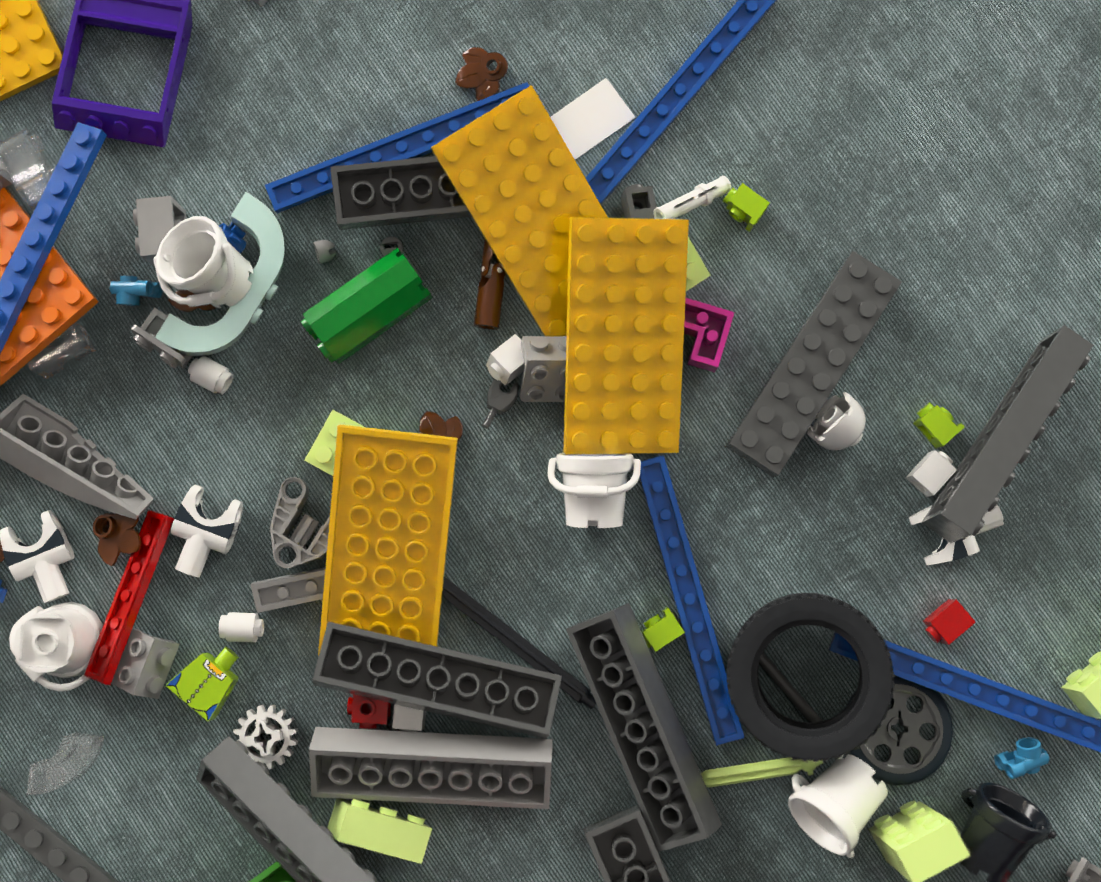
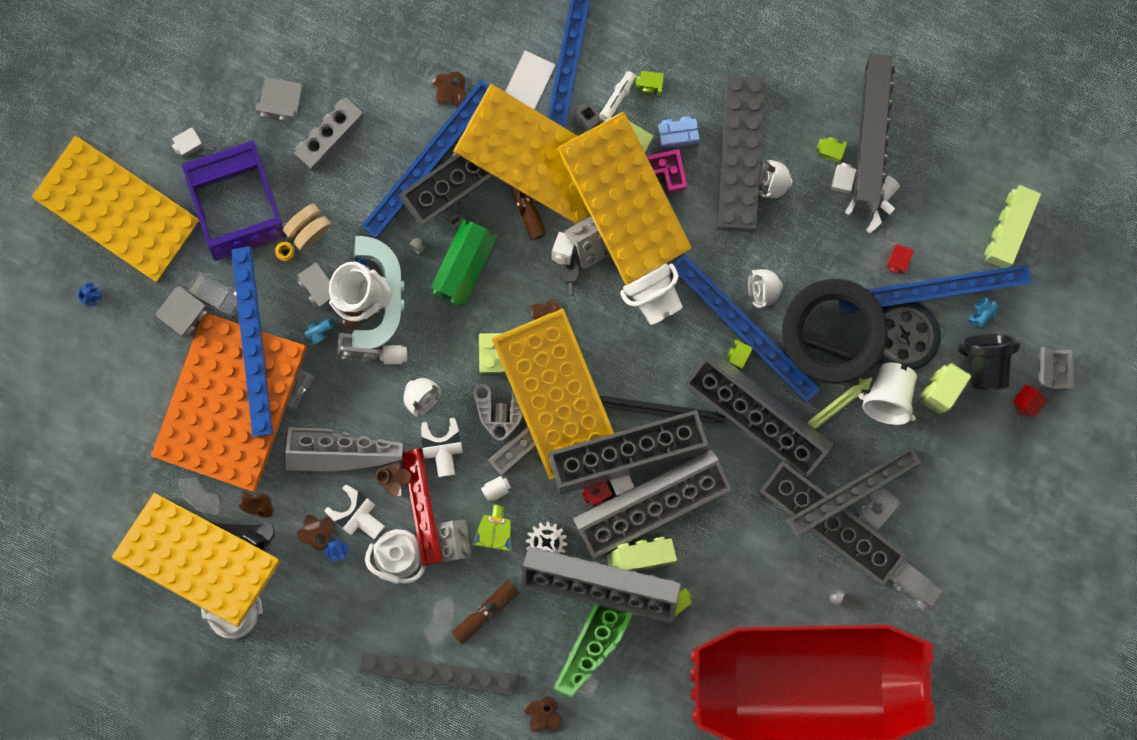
camera: 30 degrees left, 0 degrees up
(114, 787) = (474, 622): none -> reddish brown piece
(146, 163) = (281, 248): none -> yellow cone
(191, 146) = (307, 227): none -> tan wheel
(211, 449) = (421, 395): none -> white cylinder
(304, 52) = (340, 131): none -> light grey brick
(745, 291) = (678, 133): none -> light blue brick
(746, 560) = (764, 287): none -> white cylinder

